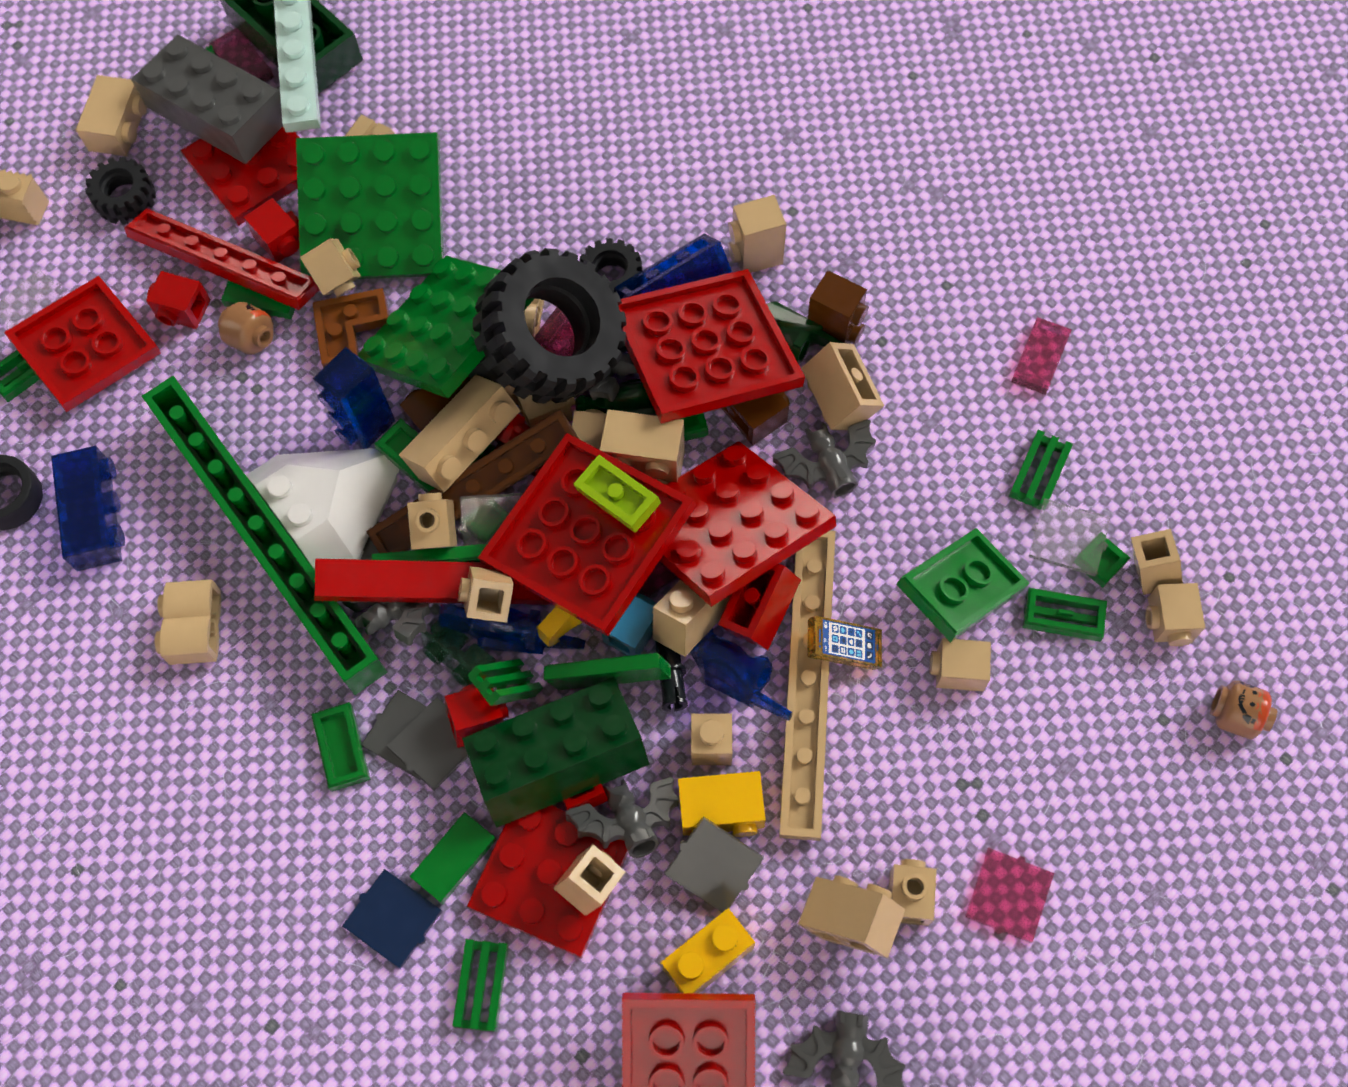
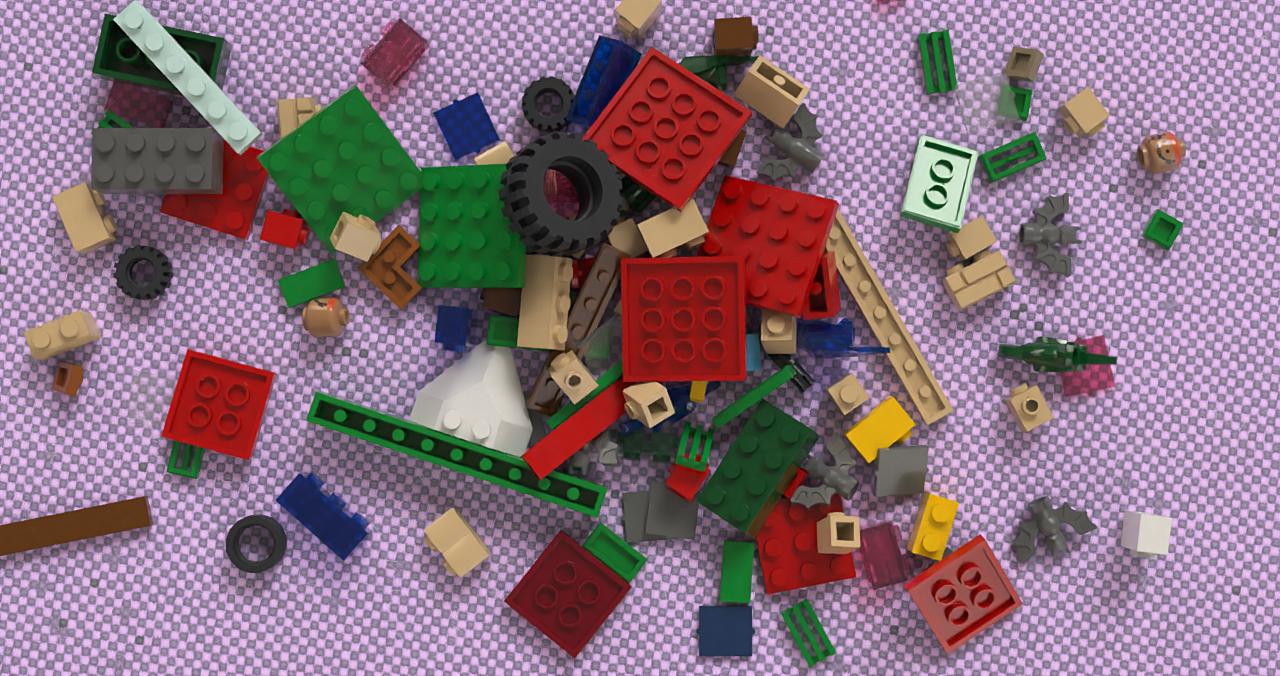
camera: 35 degrees left, 20 degrees up
(177, 300) = (258, 330): red brick -> none
(222, 258) = (263, 277): red tile -> none
(256, 755) = (567, 593): none -> dark red plate
(500, 146) = (394, 53): none -> clear pink brick
(515, 238) = (466, 126): none -> clear blue piece
(617, 493) = (691, 285): lime plate -> none
(627, 948) = (882, 554): none -> clear pink brick
(844, 643) = (889, 274): tile -> none
(852, 915) = (1004, 448): tan brick -> none
(943, 713) = (978, 280): none -> tan brick
(979, 852) = (1054, 355): none -> dark green animal
(1051, 716) = (1045, 234): none -> dark grey animal
(1135, 522) = (1023, 64): none -> dark tan plate
(1156, 560) = (1053, 86): tan brick -> none
(1196, 799) = (1162, 229): none -> green tile

